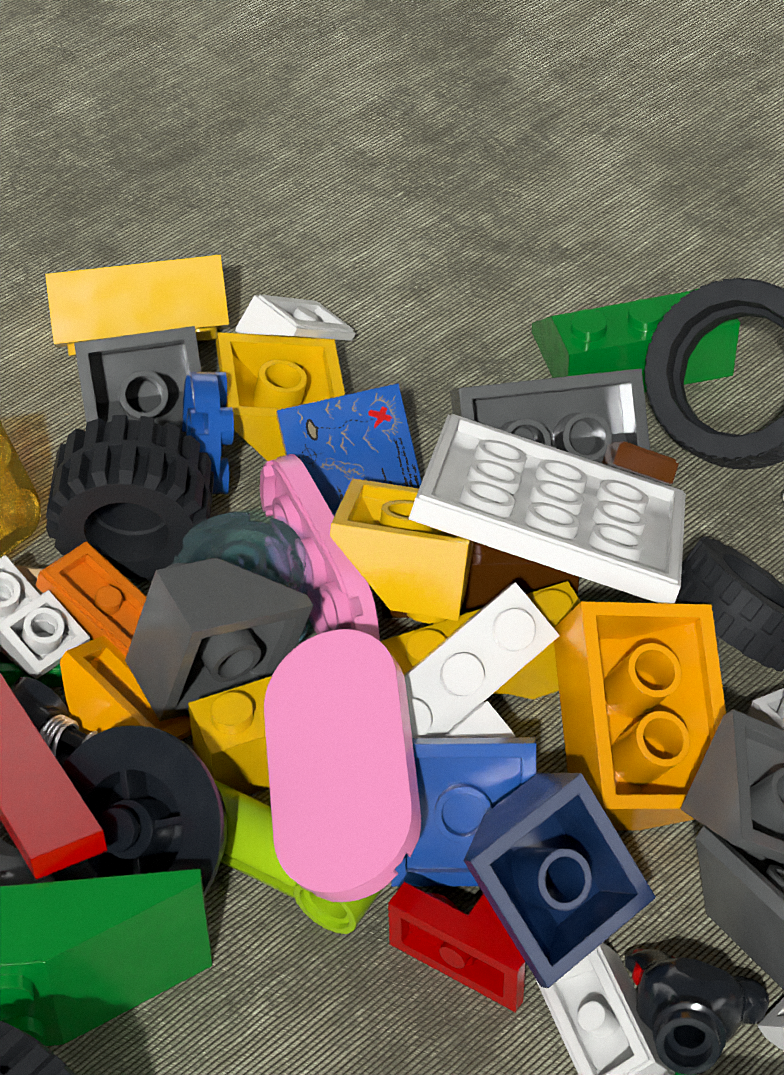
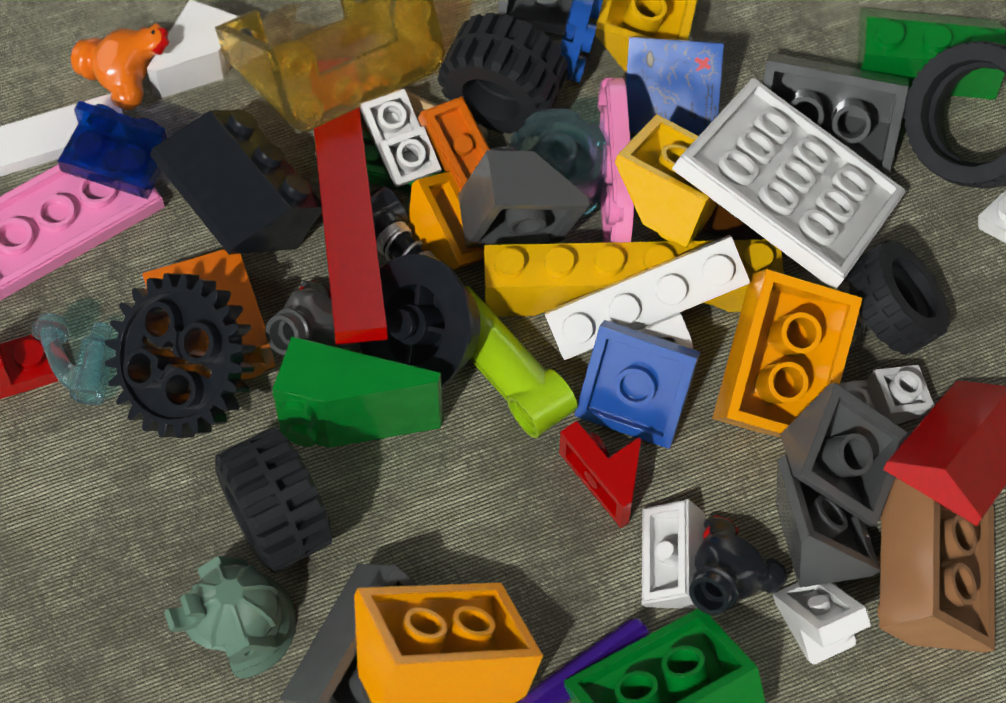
camera: 20 degrees right, 15 degrees up
(341, 765) = (562, 327): bright pink tile -> none
(555, 872) = (671, 451): dark blue slope -> none
(641, 462) = (879, 158): reddish brown tile -> none

